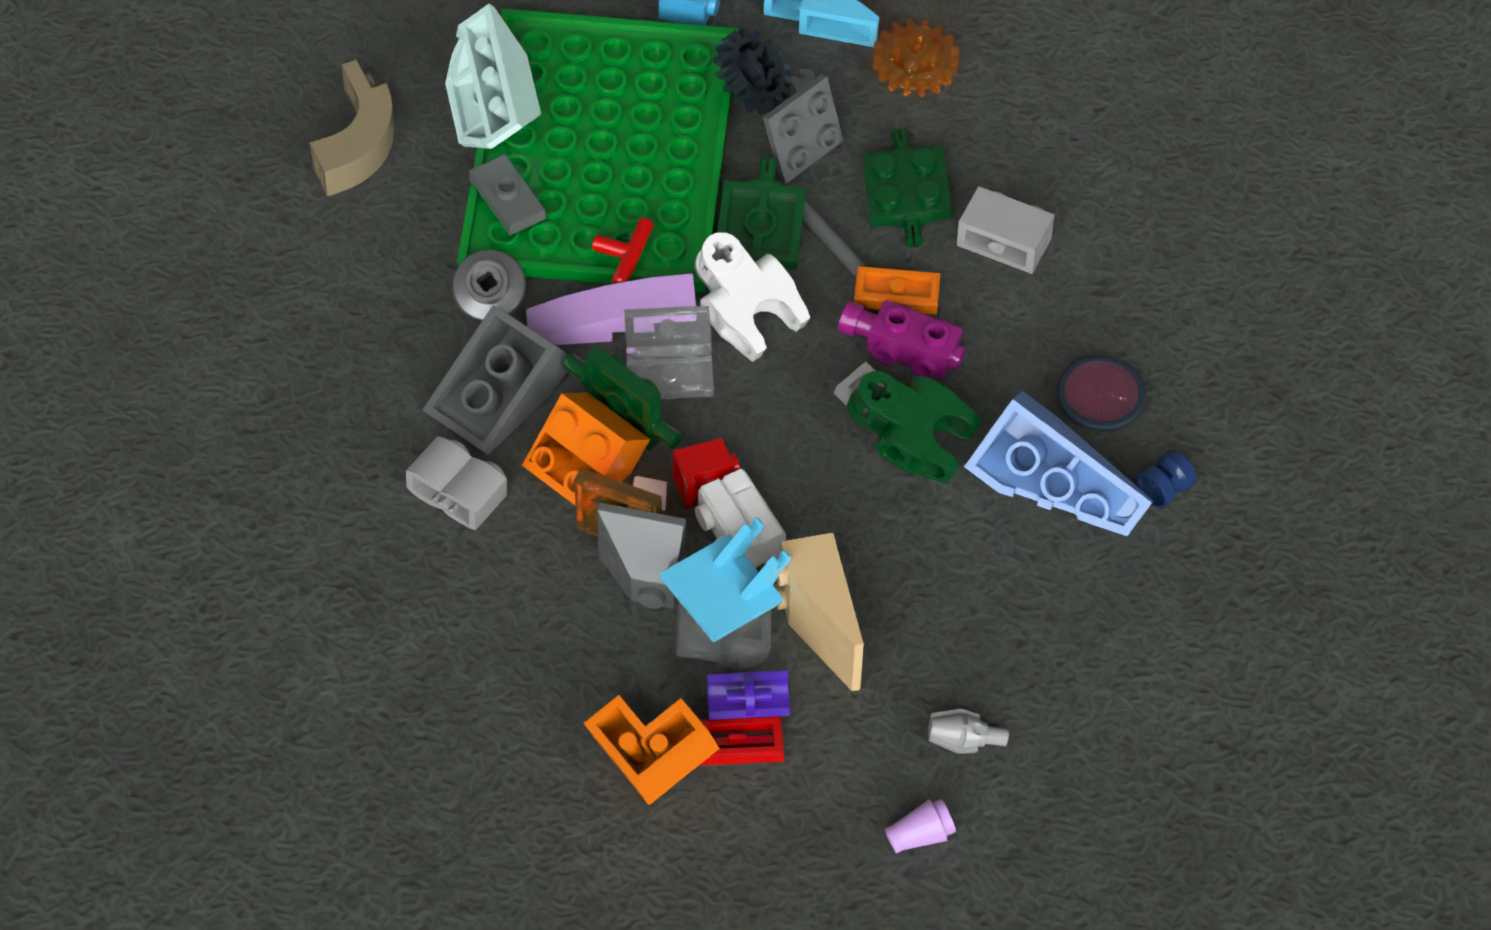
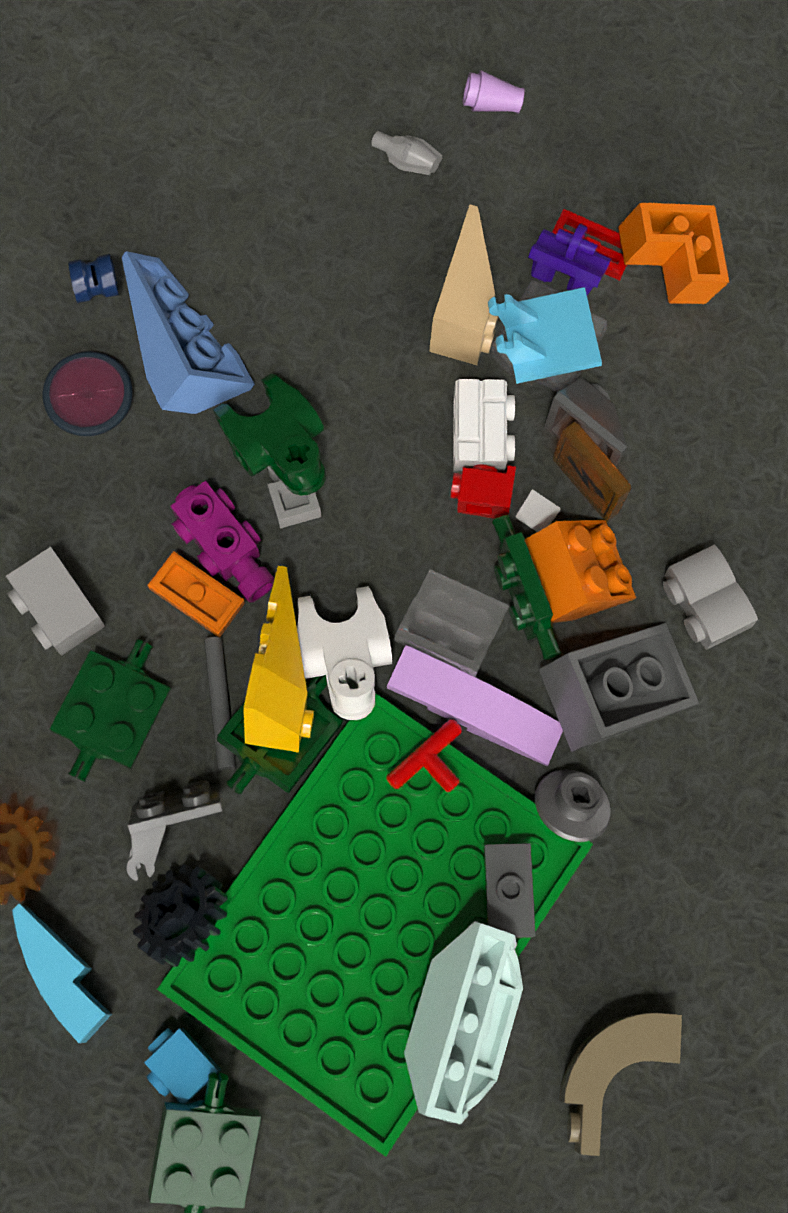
camera: 155 degrees left, 20 degrees up
(773, 223) = (277, 686): none -> yellow wedge

